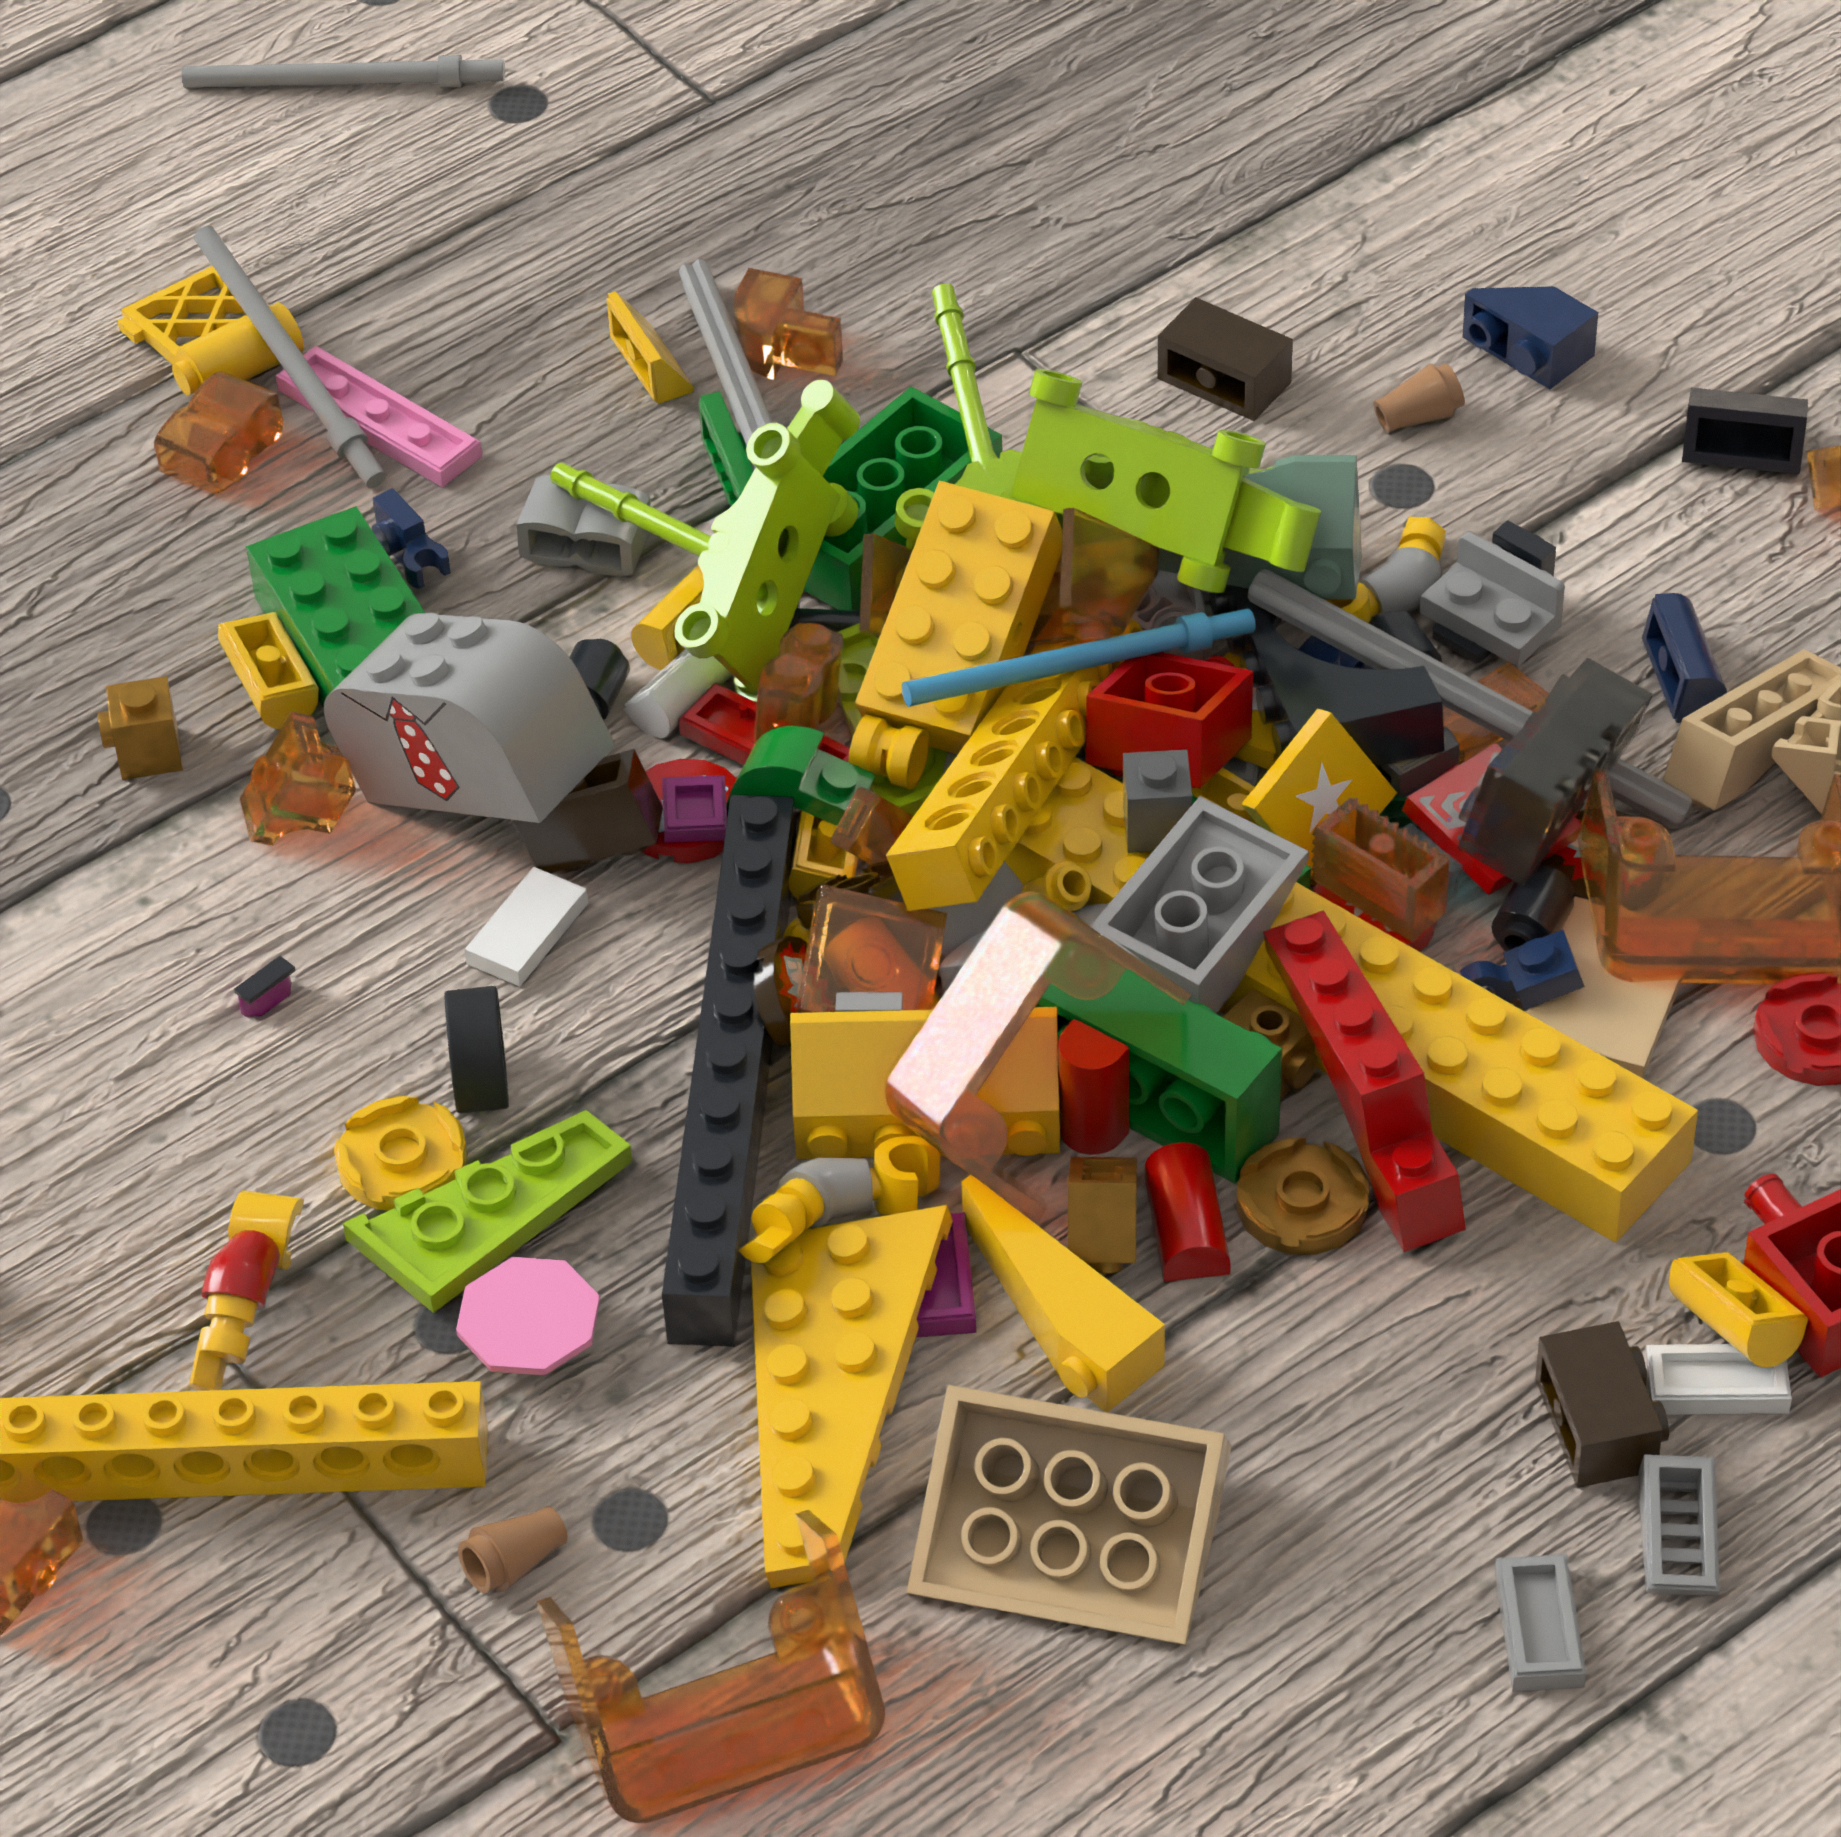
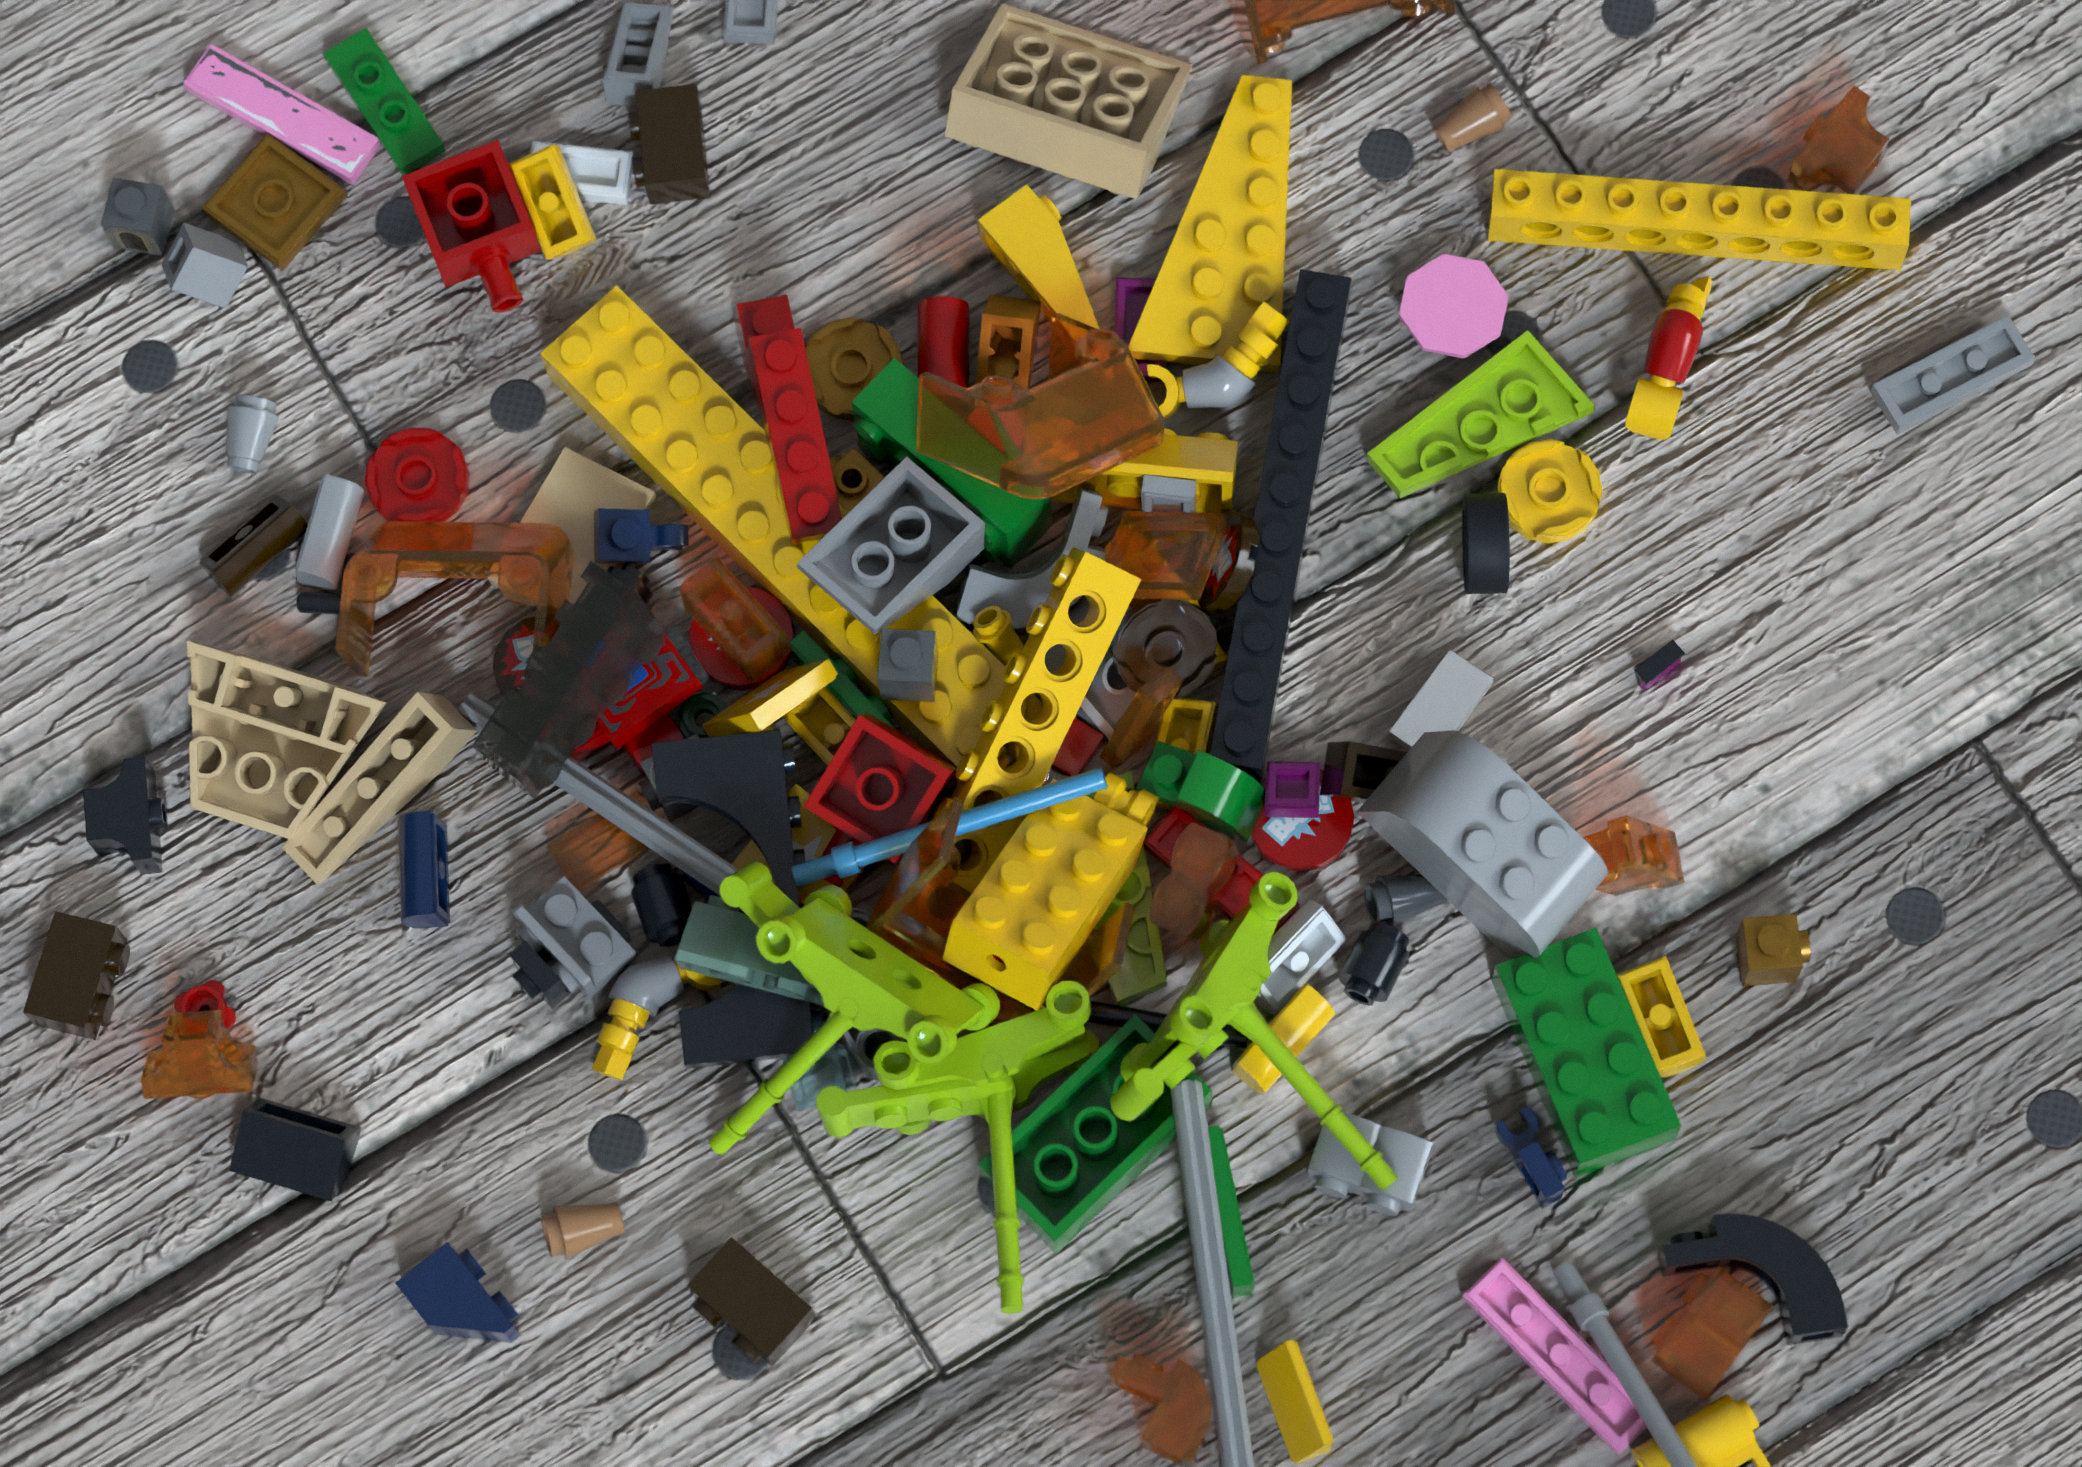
camera: 170 degrees left, 25 degrees up
(167, 495) = (1776, 1256): none -> black arch

